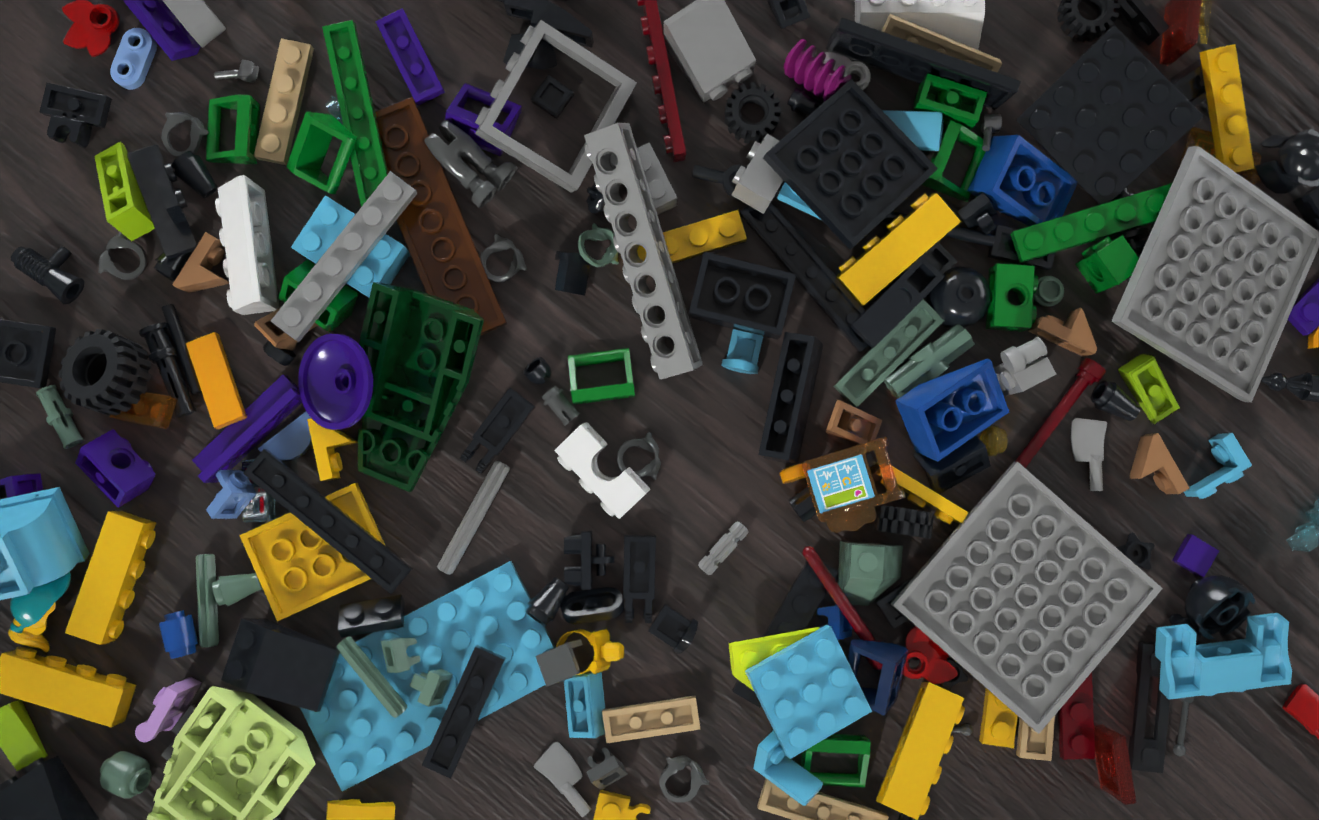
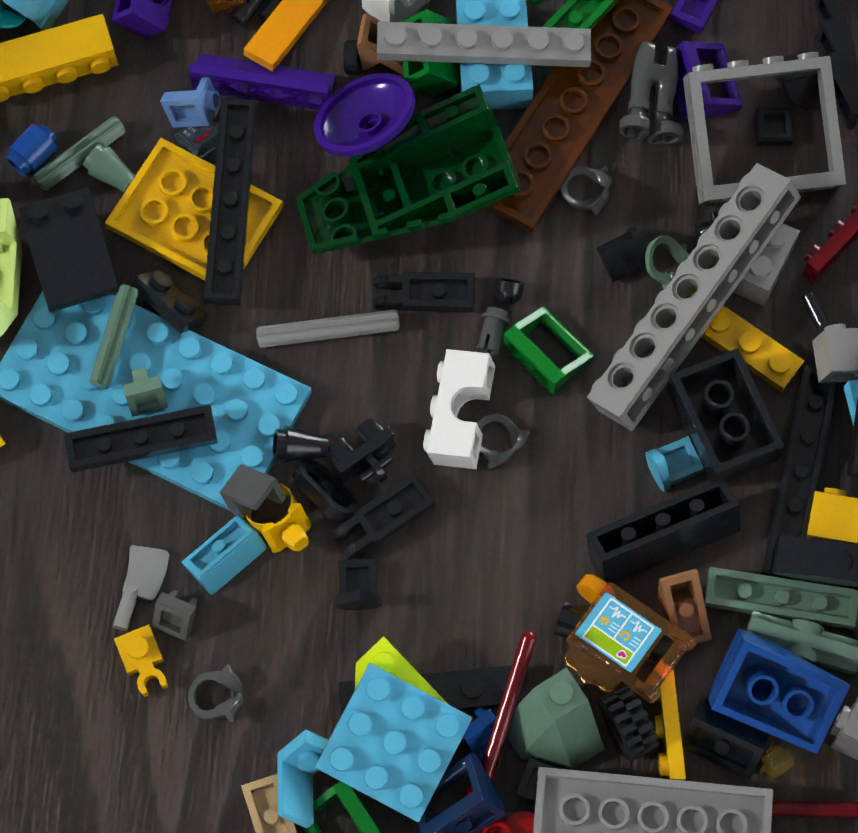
camera: 60 degrees right, 15 degrees down
(291, 441) = (282, 125): medium blue tile -> none
(323, 443) = (298, 152): yellow slope -> none
(396, 656) = (150, 341): sand green tile -> none
(651, 719) = (255, 623): tan plate -> none
(723, 548) = (471, 576): light grey axle -> none

